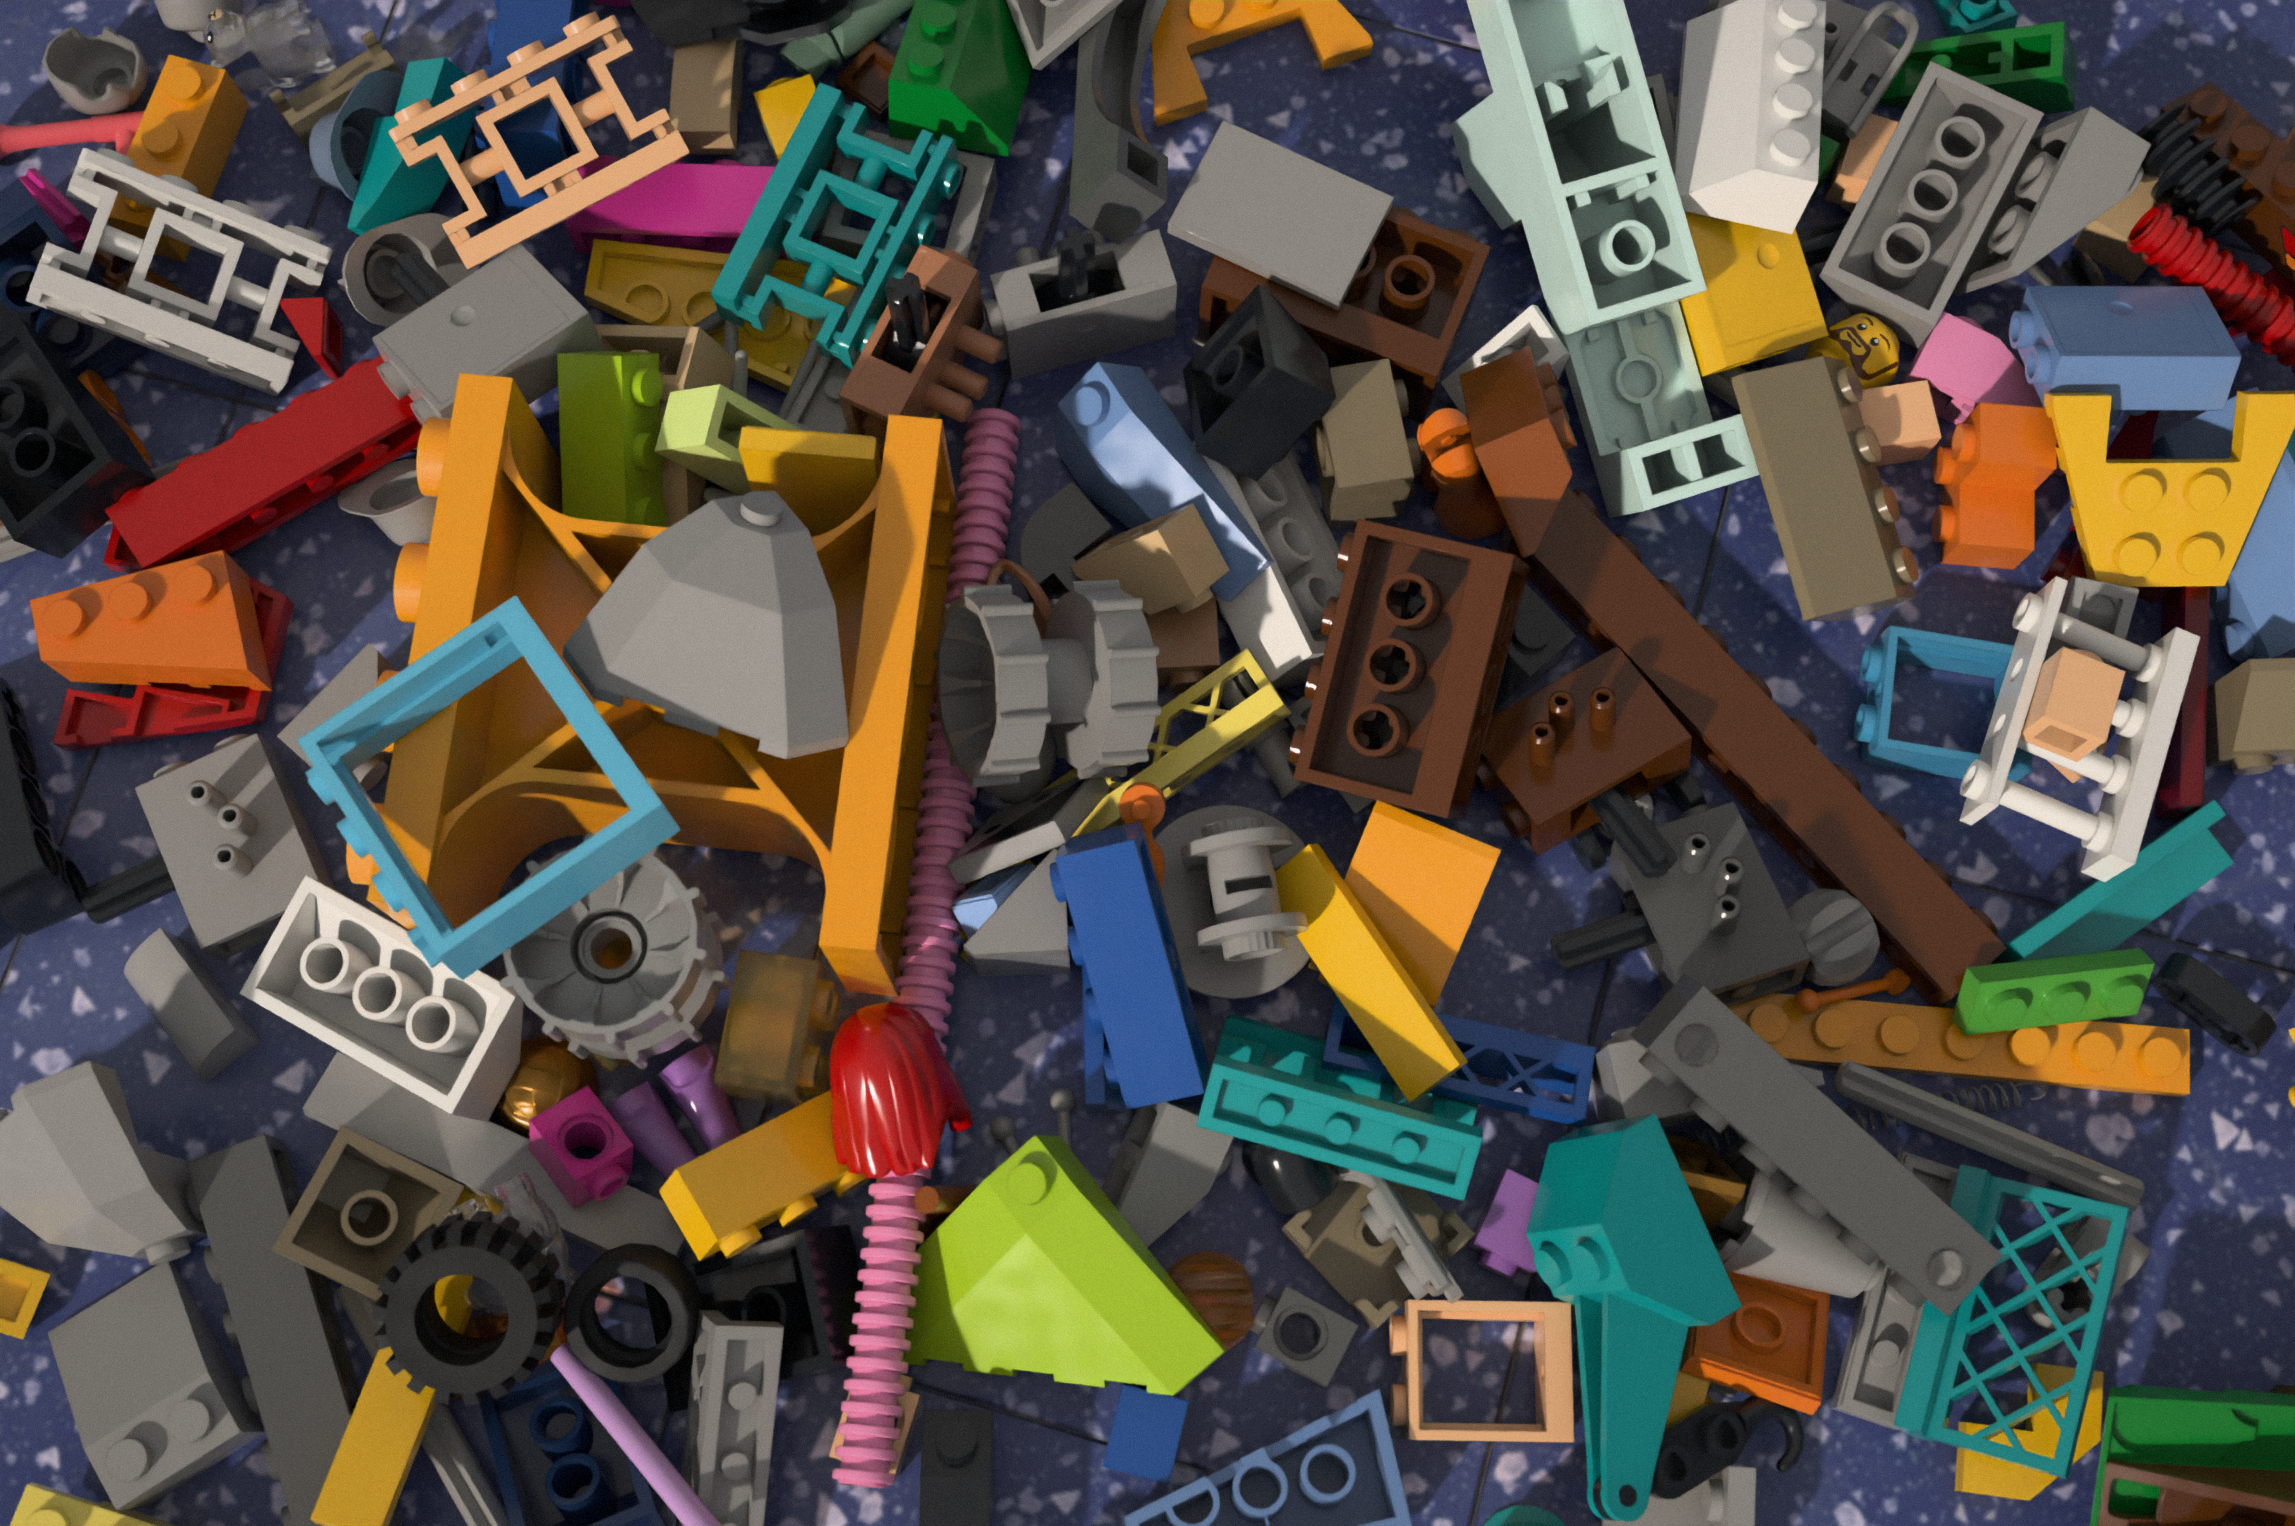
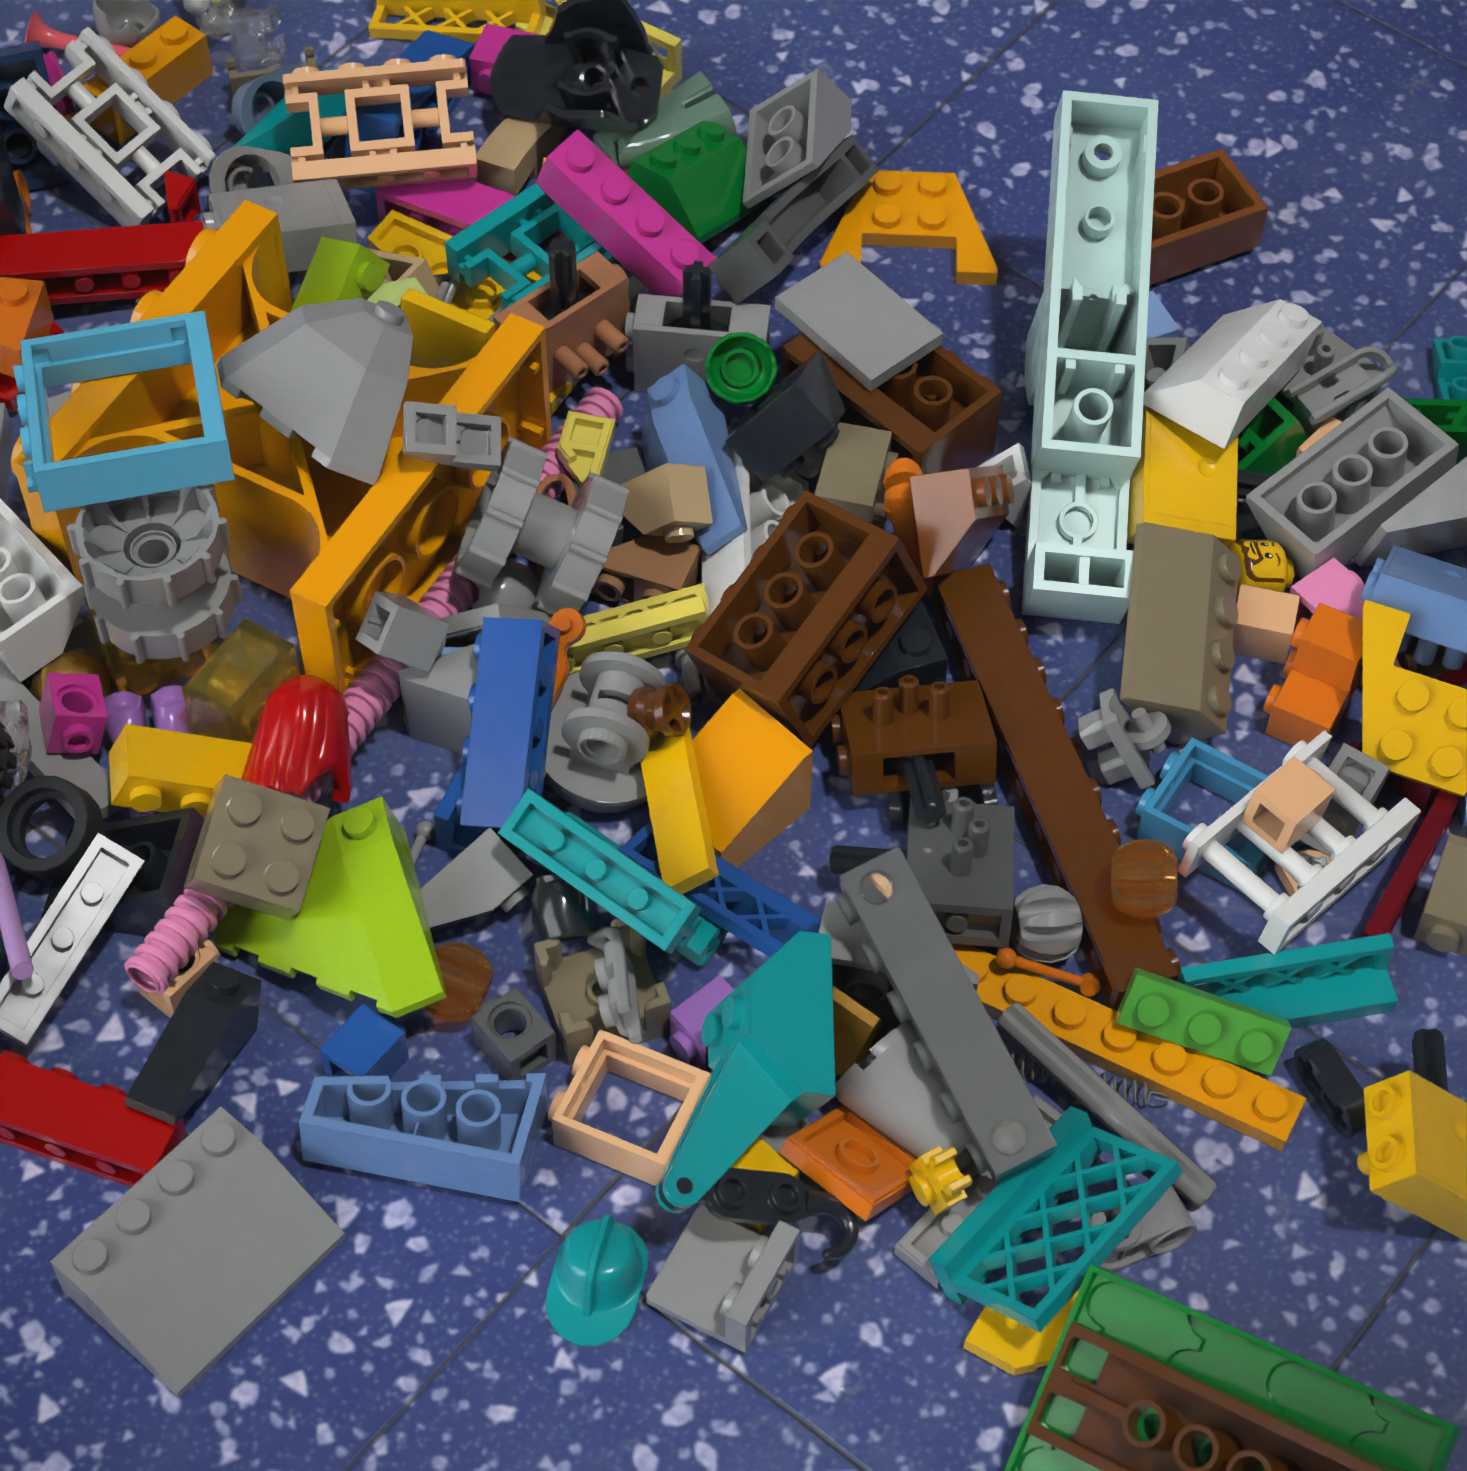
camera: 25 degrees right, 20 degrees down
(914, 641) = (450, 437): none -> light grey slope
(927, 1279) = (257, 847): none -> dark tan brick
(932, 182) = (620, 215): none -> dark pink brick
(951, 900) = (403, 630): none -> light grey slope
(1017, 513) = (585, 444): none -> light yellow tile
(1165, 337) = (741, 368): none -> green hair
(1304, 876) = (661, 709): none -> reddish brown wheel
(1810, 659) = (1130, 738): none -> light grey hips
(1868, 1333) = (938, 1180): none -> yellow plate
(1936, 854) = (1144, 879): none -> clear orange piece

